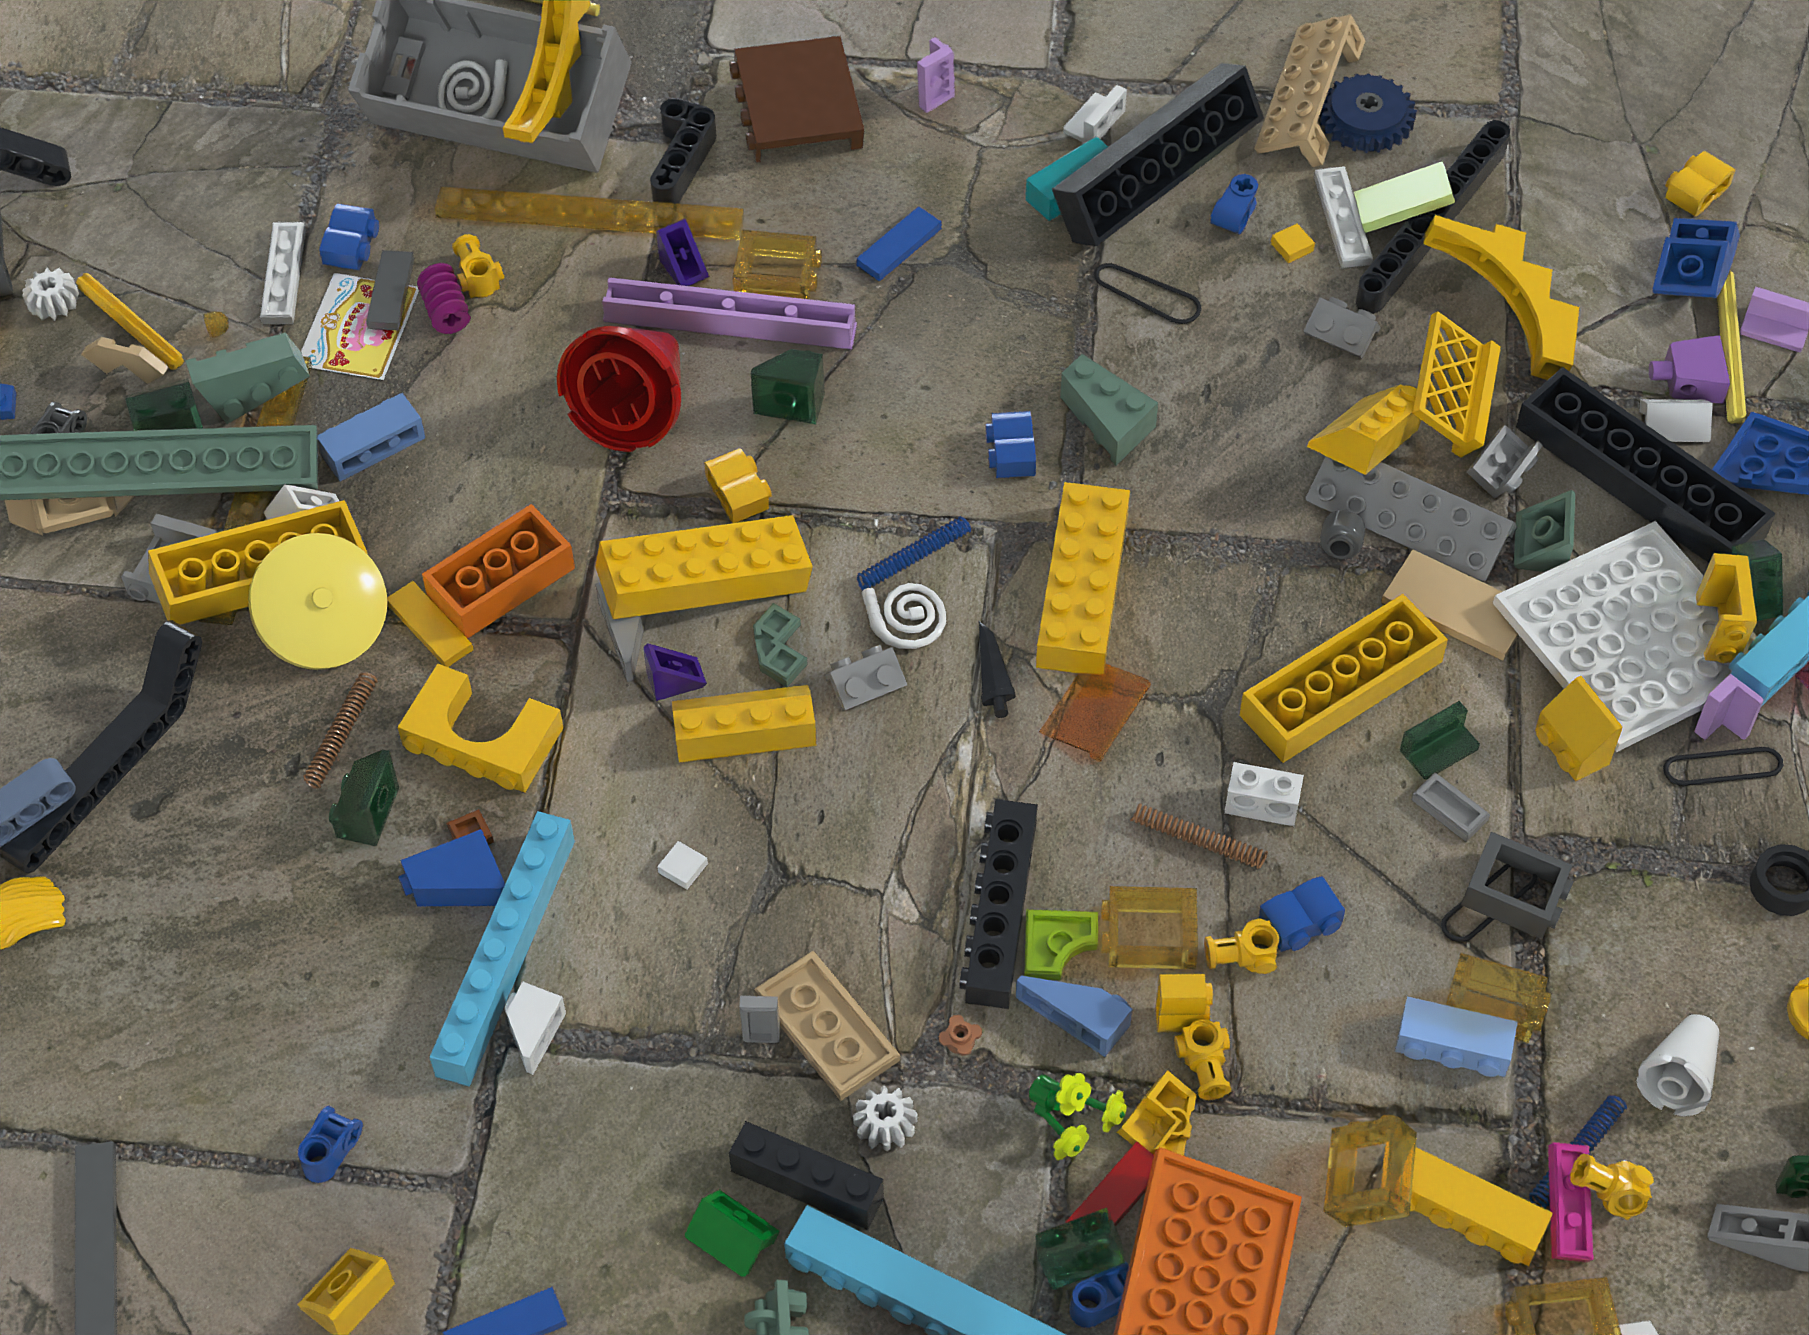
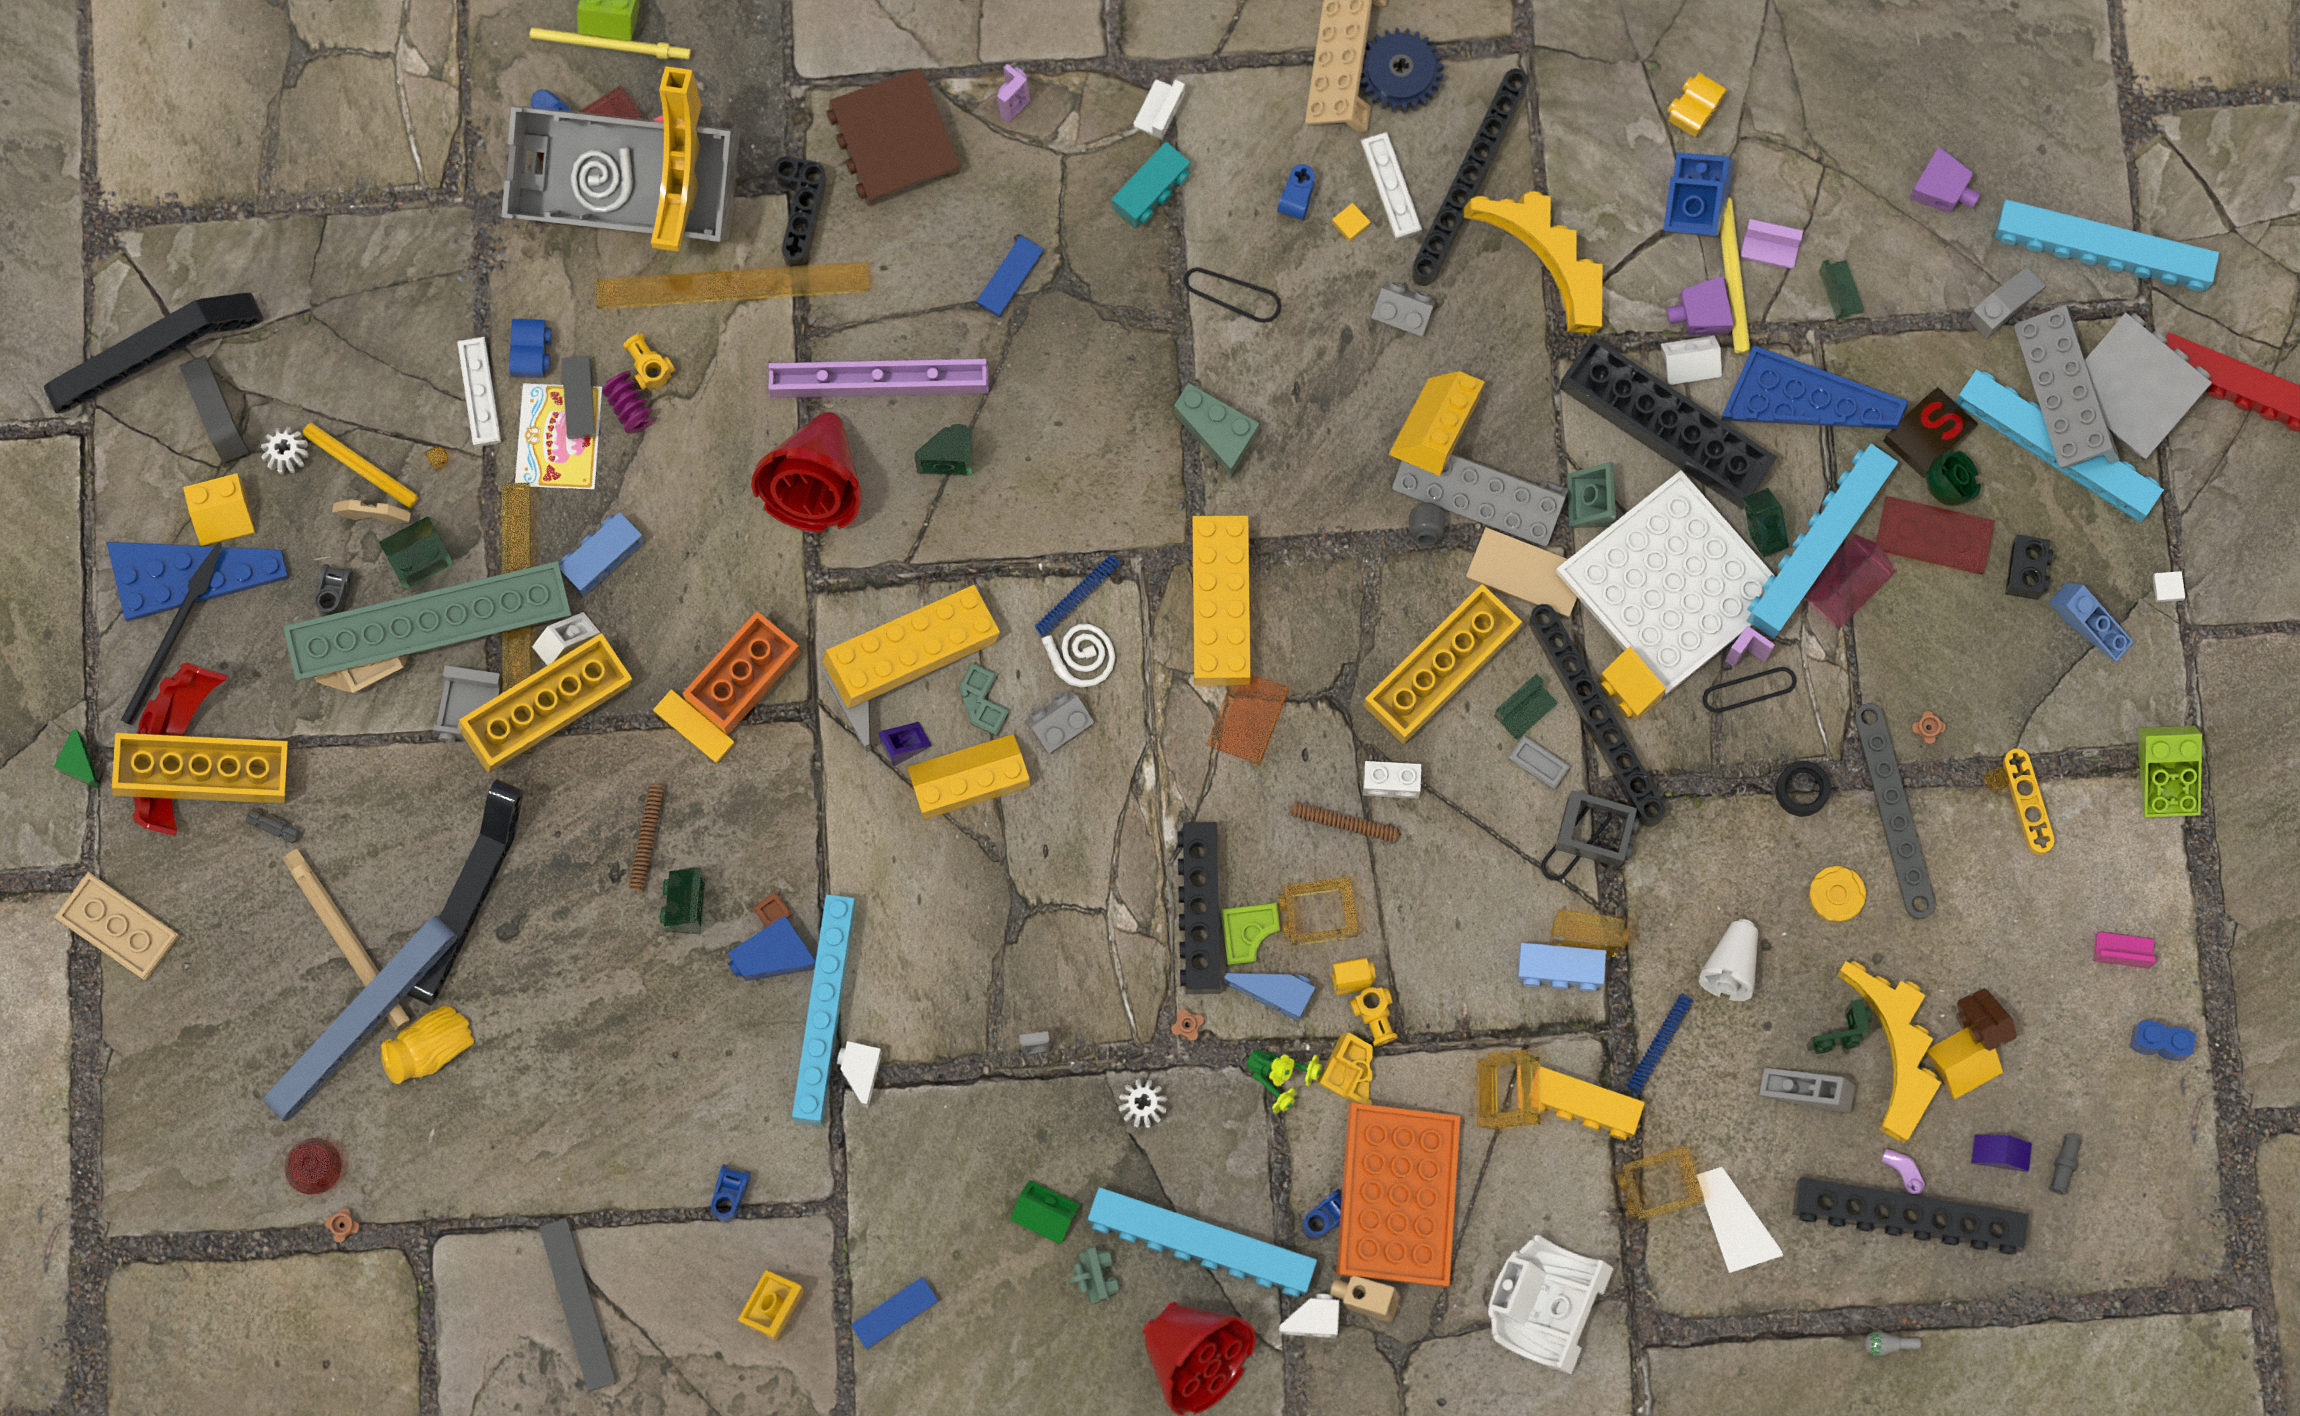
camera: 10 degrees left, 20 degrees up
(248, 376) = (488, 518): sand green wedge -> none
(317, 601) = (603, 731): light yellow dish -> none
(507, 760) = (789, 845): yellow arch -> none
(680, 254) = (825, 325): dark purple slope -> none
(682, 865) = (946, 913): white tile -> none
(737, 485) = (920, 554): yellow brick -> none
(776, 245) = (913, 344): clear yellow window -> none
(806, 1175) = (1092, 1160): black brick -> none
(829, 1026) = (1084, 1031): tan tile -> none
(994, 676) = (1163, 704): black bar -> none
(1012, 444) = (1142, 476): blue brick -> none
(1079, 1248) = (1303, 1187): clear green brick -> none
(1121, 1186) = (1321, 1136): red tile -> none
(1158, 154) = (1224, 154): black brick -> none
(1243, 950) = (1390, 918): yellow connector -> none
(1303, 913) = (1434, 880): blue brick -> none
(1404, 197) = (1442, 167): yellowish green tile -> none
(1474, 392) = (1521, 364): yellow fence -> none
(1503, 462) = (1552, 429): light grey bracket -> none
(1530, 776) = (1596, 701): none -> black beam
(1570, 1206) = (1657, 1087): dark pink tile -> none
(1619, 1185) = (1692, 1071): yellow connector -> none
(1728, 588) = (1743, 536): yellow panel -> none

